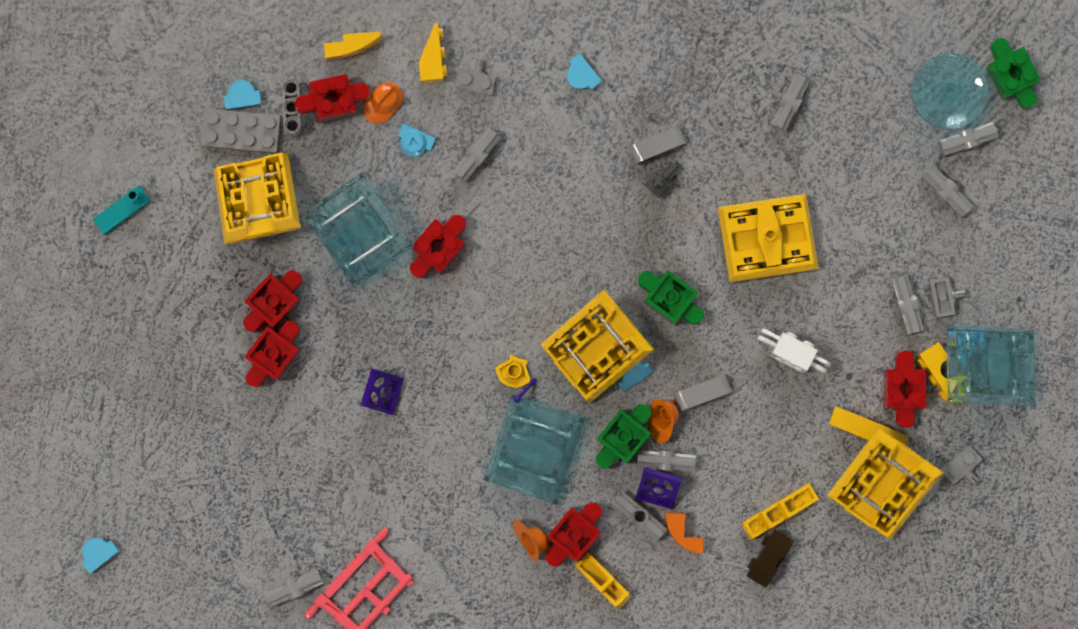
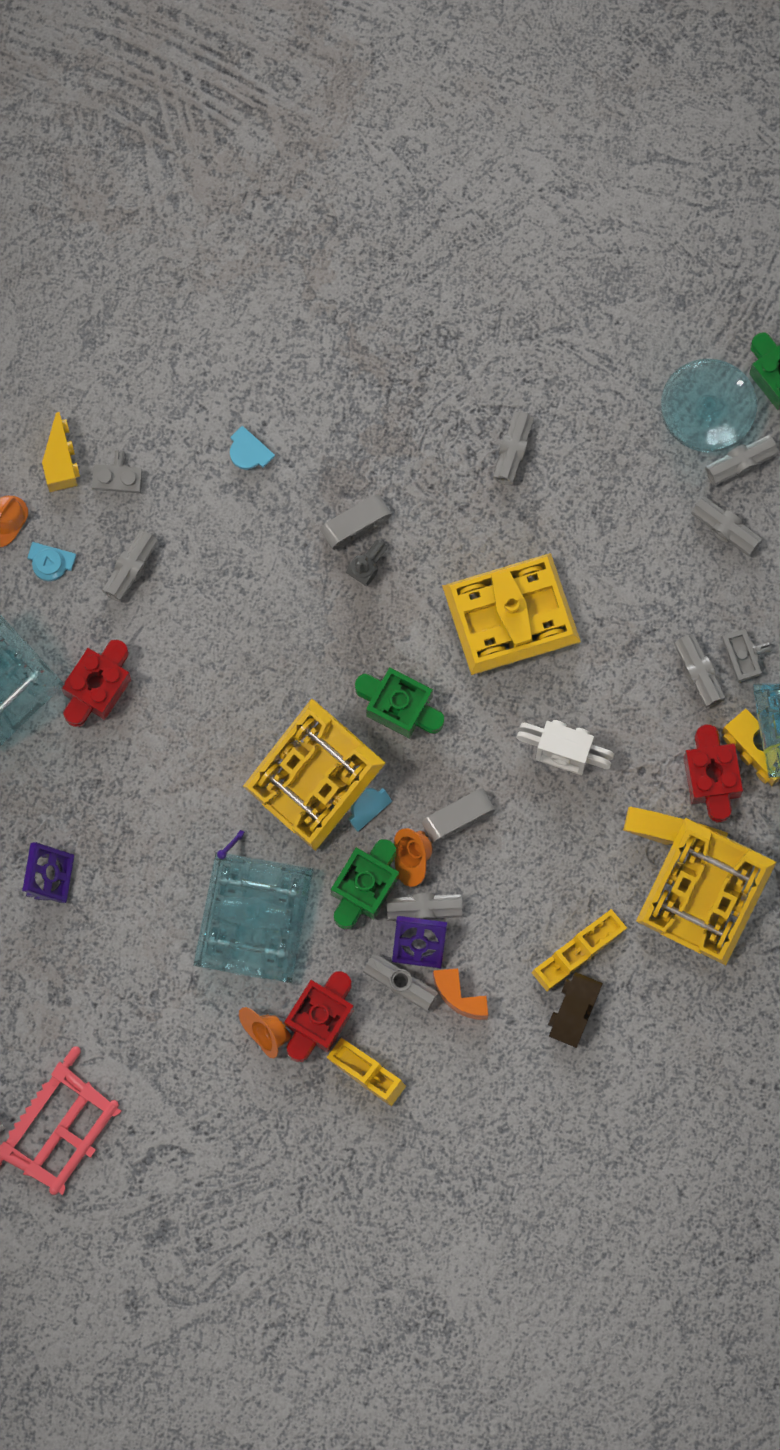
camera: 10 degrees left, 10 degrees down
(513, 372) = (213, 826): yellow animal -> none

